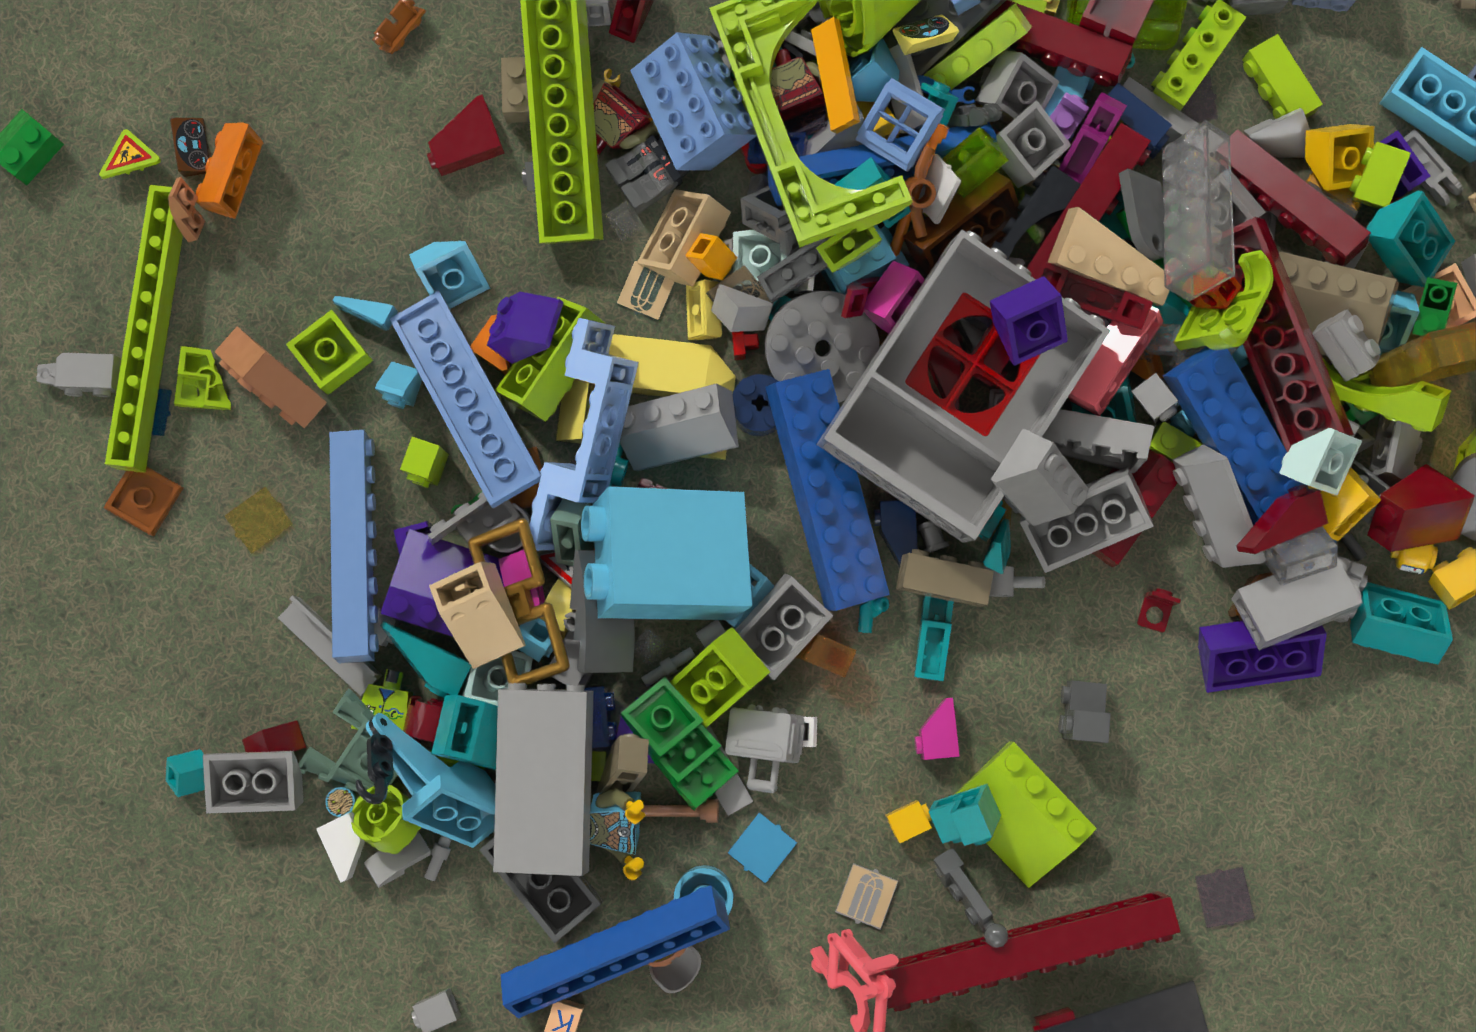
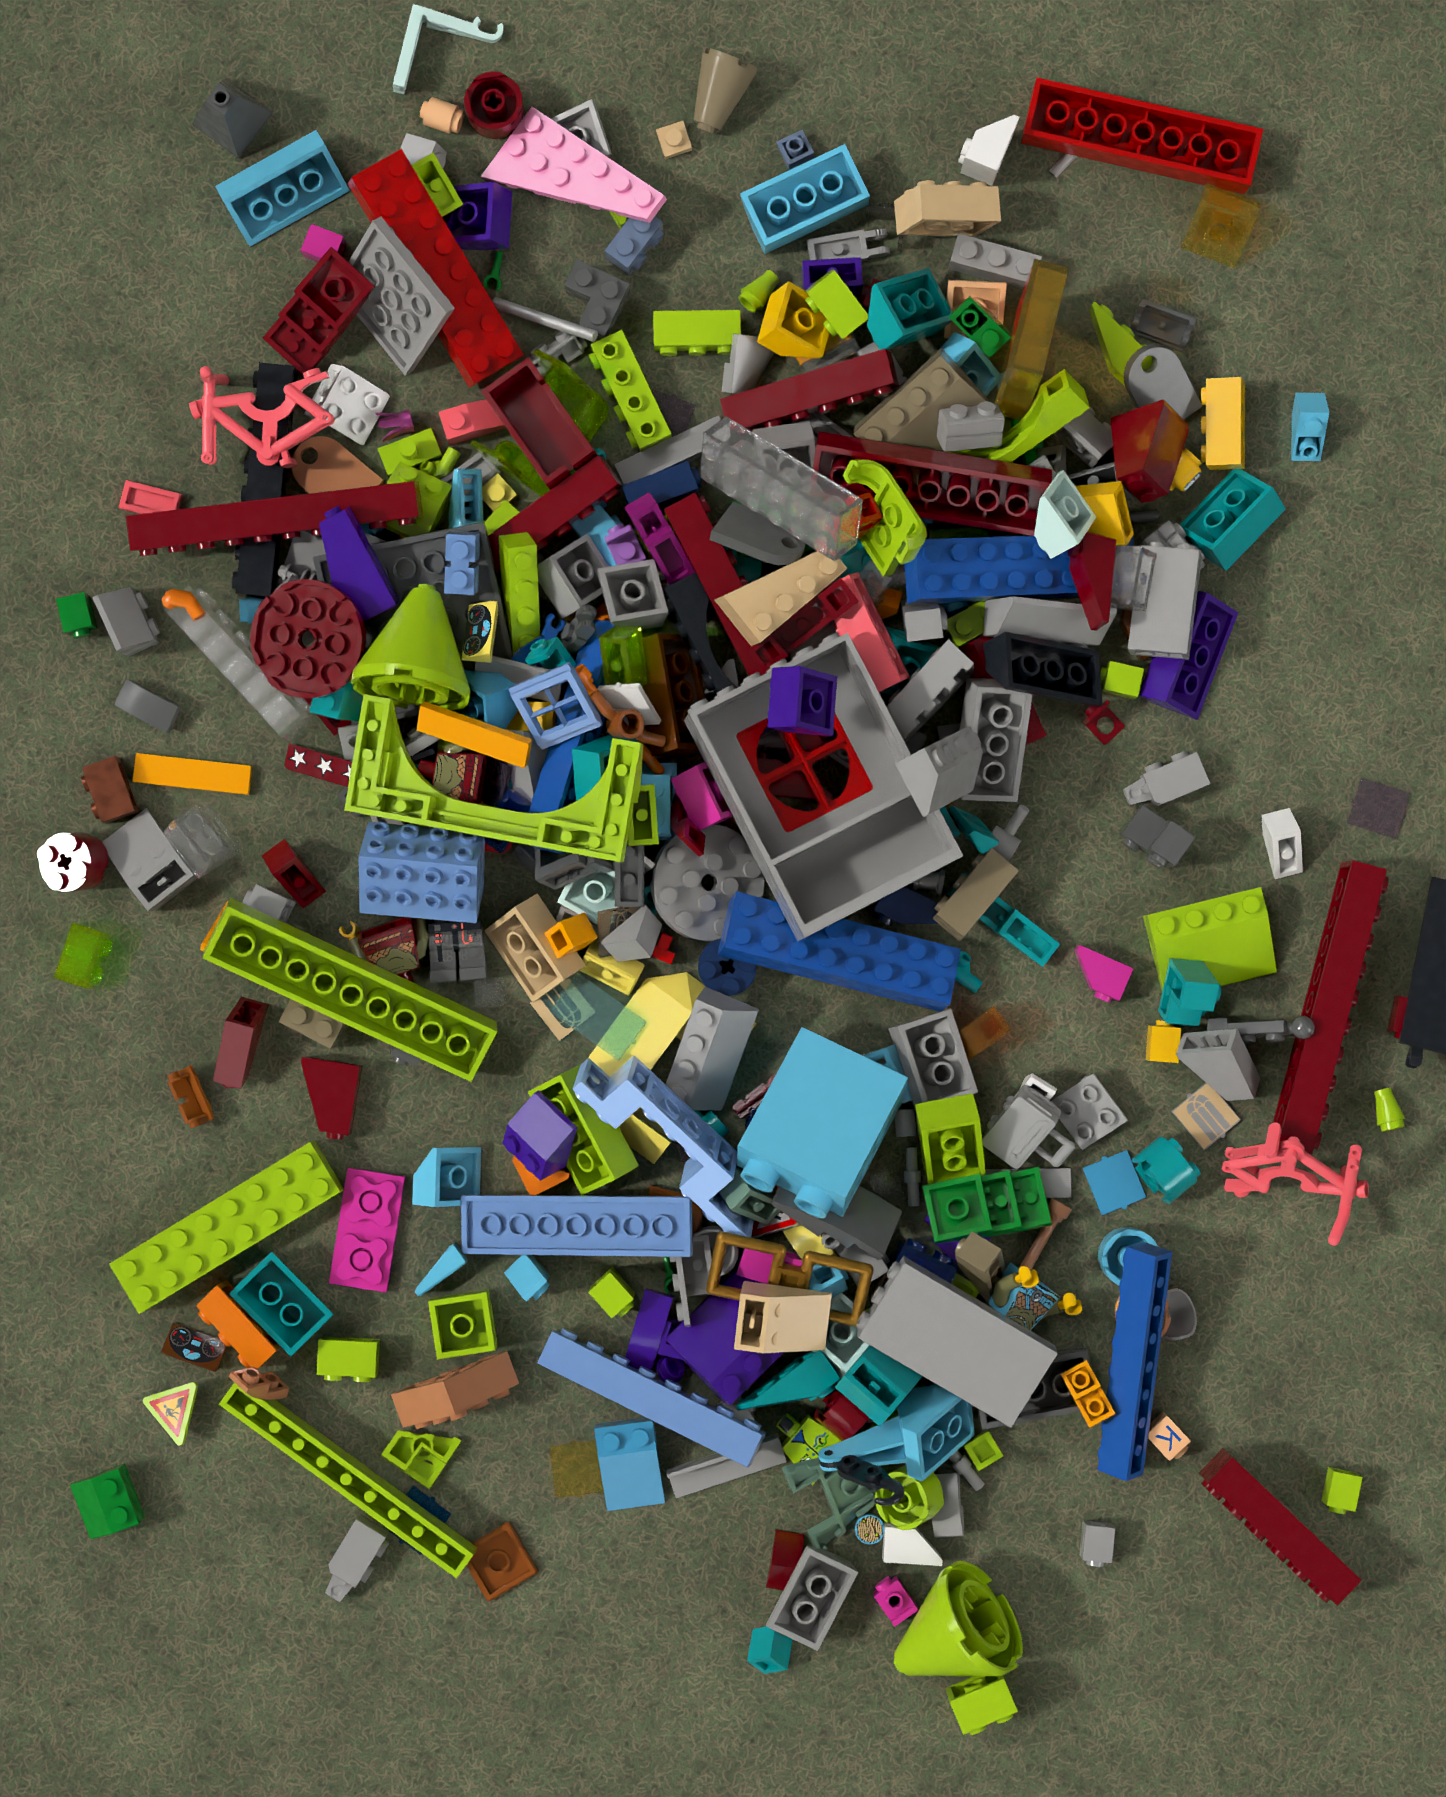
camera: 65 degrees left, 5 degrees up
(238, 985) = (980, 1702): none -> lime brick
(249, 274) = (348, 1357): none -> lime brick
(263, 191) = (281, 1304): none -> teal slope
(286, 560) = (629, 1463): none -> dark azure slope
(294, 932) = (961, 1629): none -> lime cone
(300, 852) = (893, 1587): none -> dark pink brick
(306, 114) = (226, 1226): none -> lime brick
(367, 232) = (367, 1229): none -> dark pink piece
(386, 550) = (670, 1368): none -> dark purple plate
(411, 510) = (648, 1328): none -> dark purple slope
(463, 863) = (983, 1450): none -> lime plate
(466, 39) = (239, 1042): none -> dark red slope
(561, 926) = (1088, 1394): none -> light orange slope
(655, 321) = (598, 1016): none -> clear light blue piece
(800, 885) = (1166, 1169): none -> teal brick
(811, 789) = (1089, 1111): none -> light grey hinge
(922, 881) = (1221, 1062): none -> light grey slope
(1139, 696) = (1169, 781): none -> light grey hinge
(1145, 828) = (1283, 843): none -> white slope
(1178, 527) = (1044, 668): none -> black slope
(1202, 604) = (1121, 679): none -> lime brick
(1342, 113) = (757, 293): none -> lime cone

